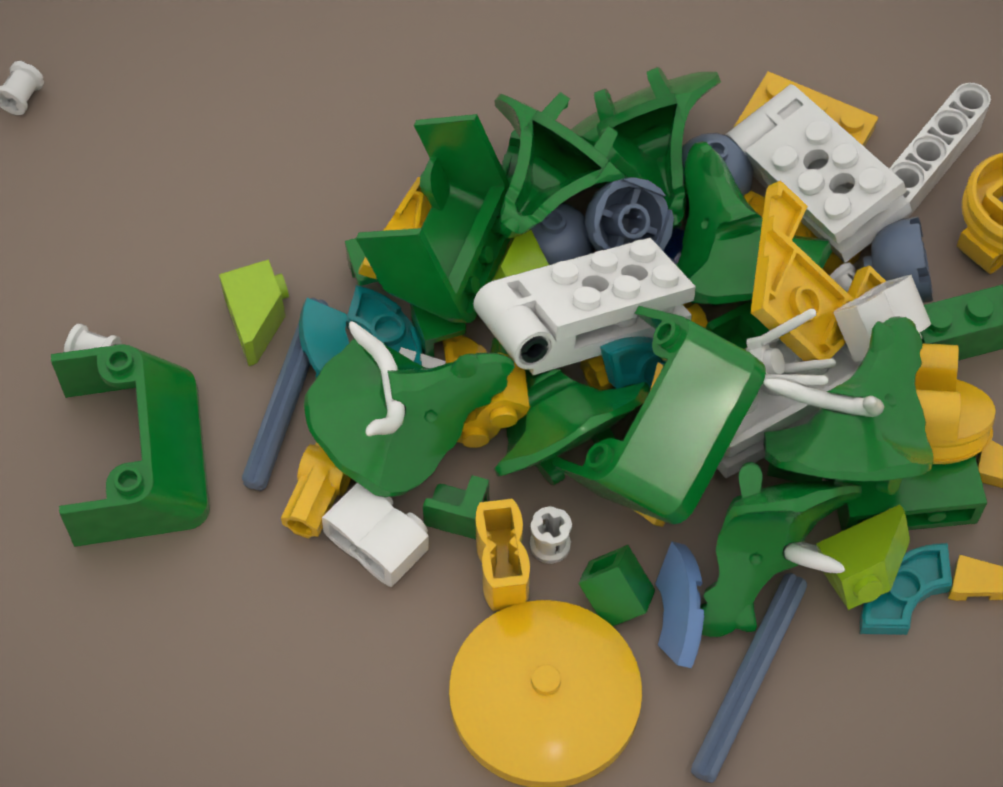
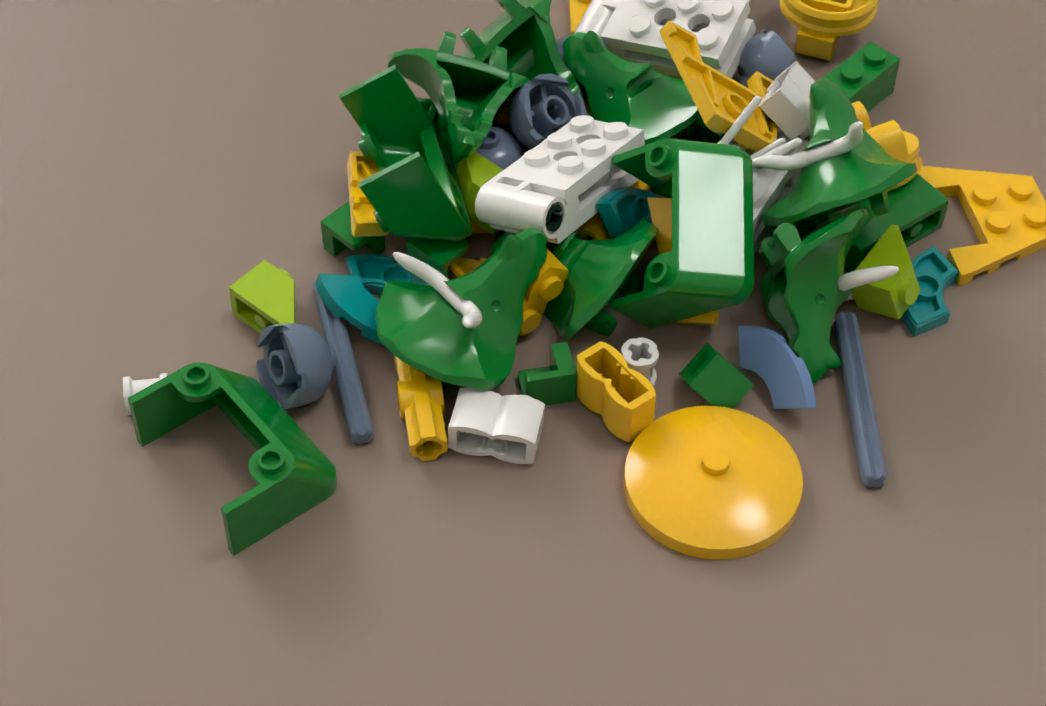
camera: 30 degrees left, 10 degrees down
(234, 383) = (295, 364): none -> sand blue cylinder

